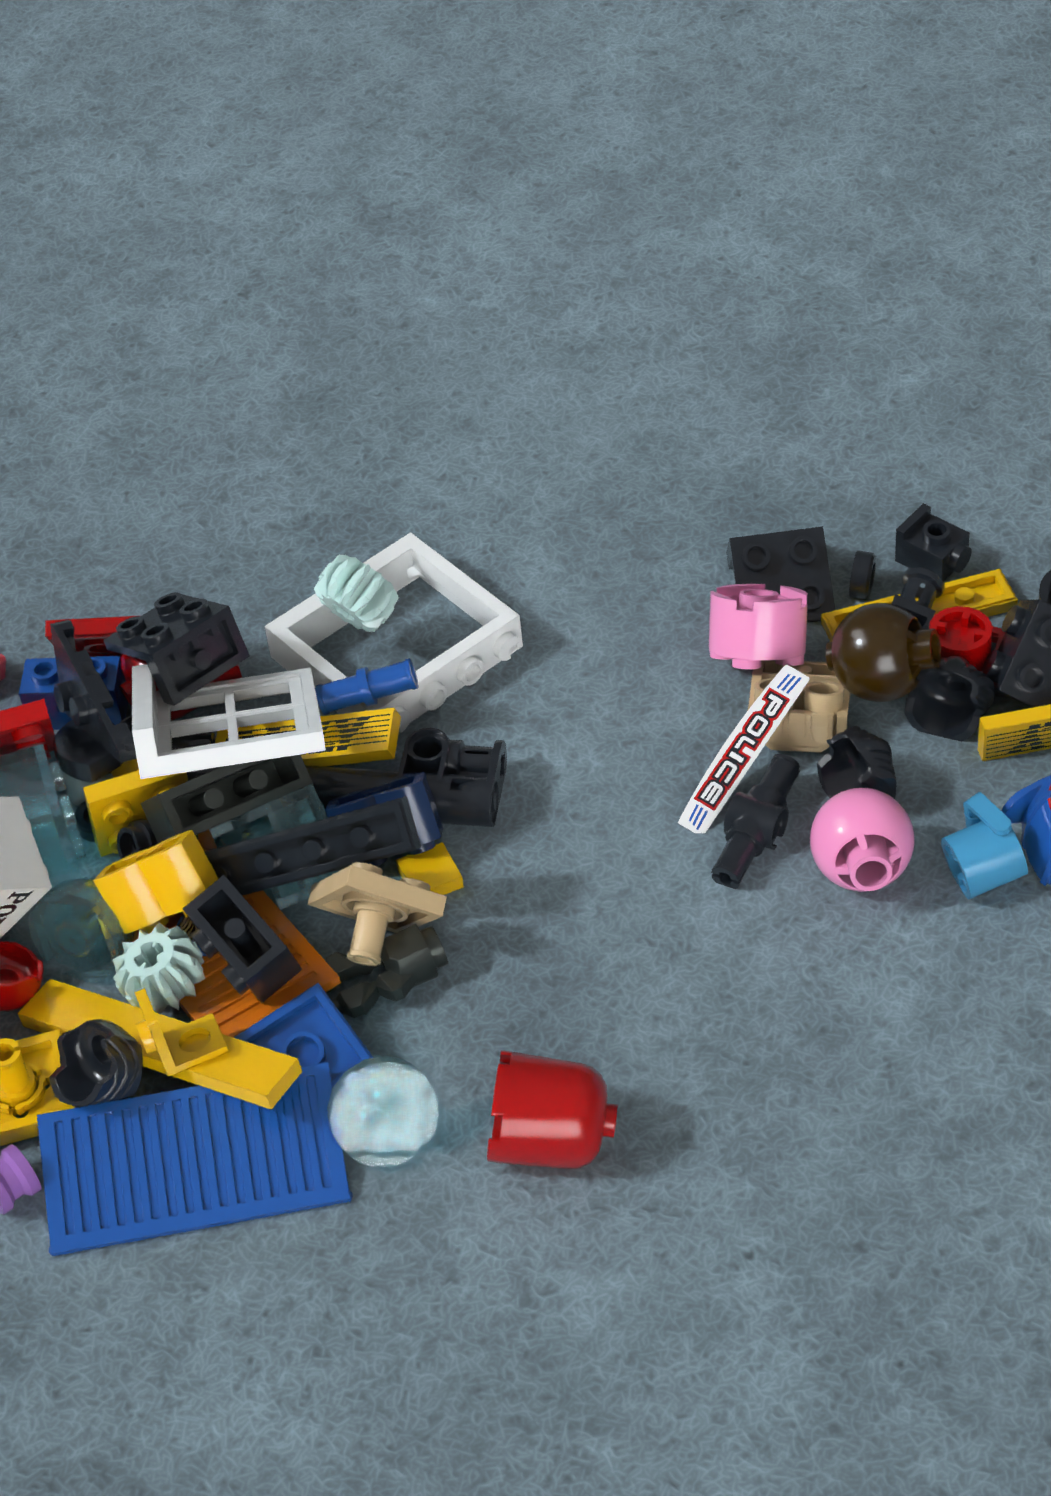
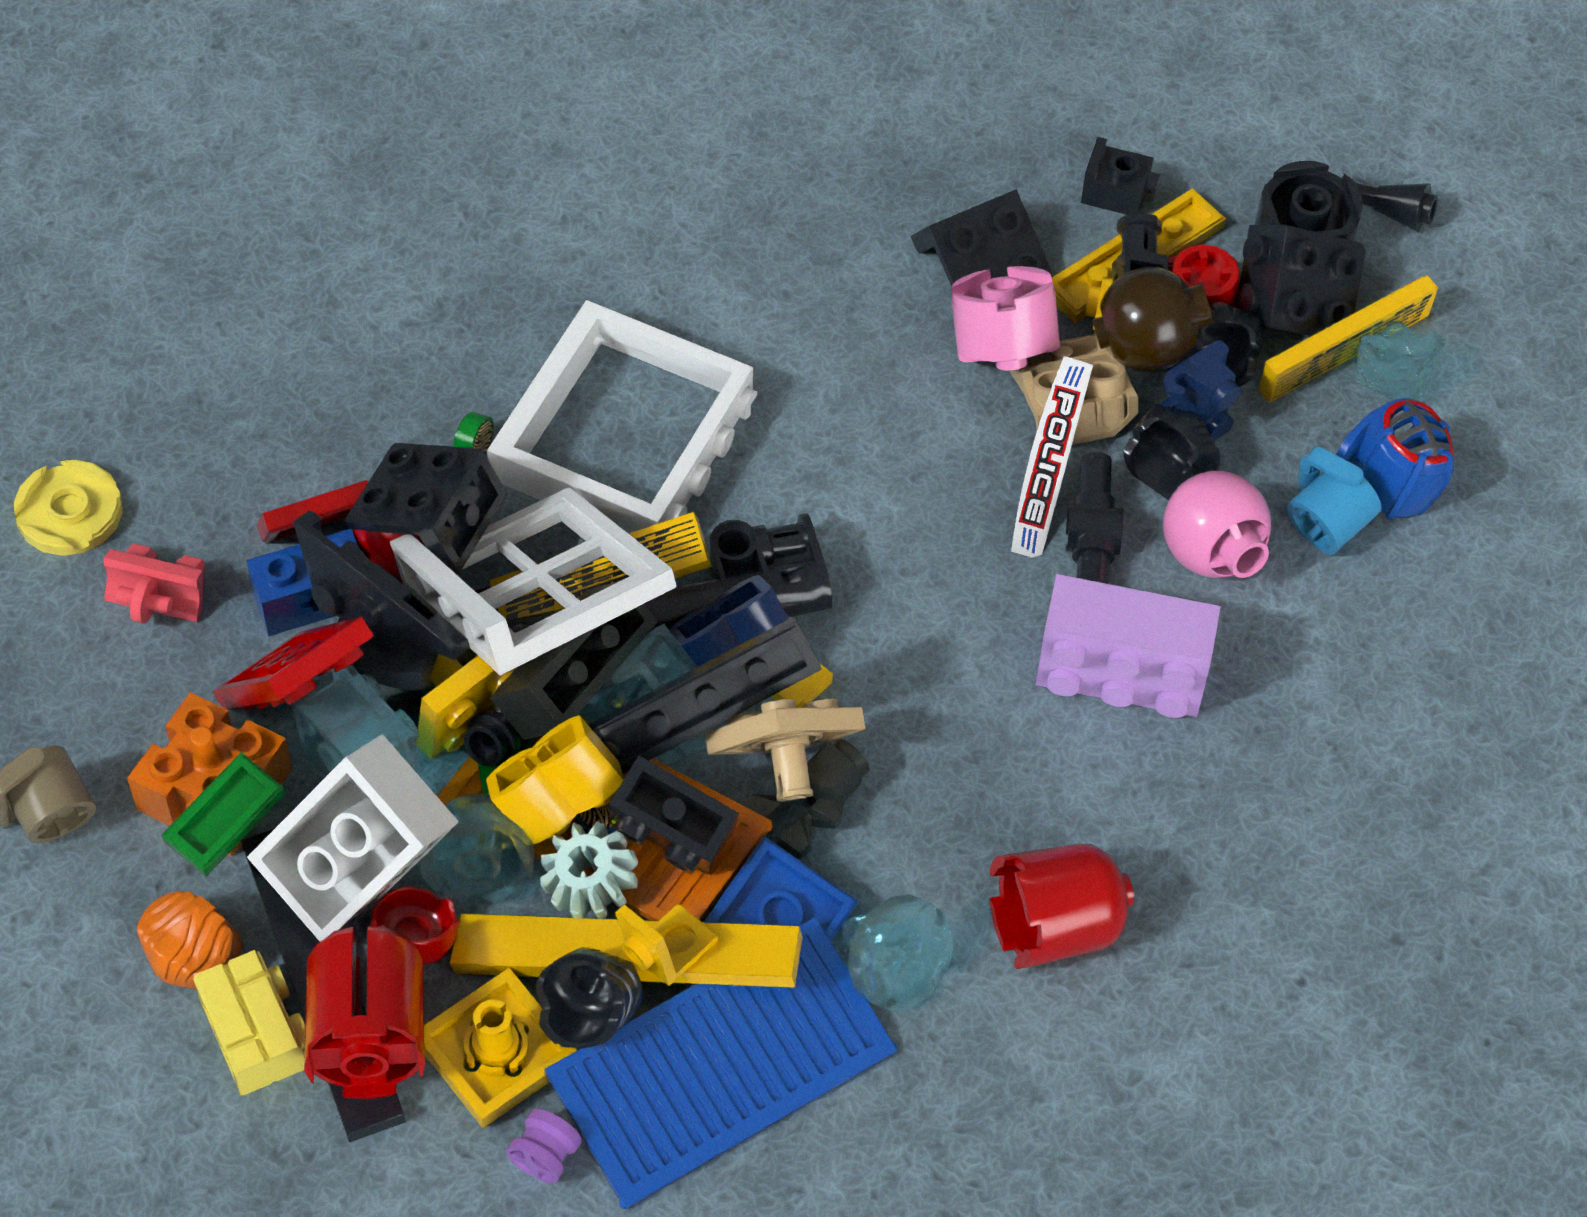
camera: 30 degrees left, 10 degrees up
(261, 614) = (474, 431): none -> green tile
(356, 593) = (585, 391): light aqua gear -> none
(366, 686) = (649, 491): blue pin -> none
(722, 917) = (1127, 646): none -> lavender brick
(862, 574) = (1065, 229): black tile -> none
(909, 728) = (1204, 387): none -> dark blue piece

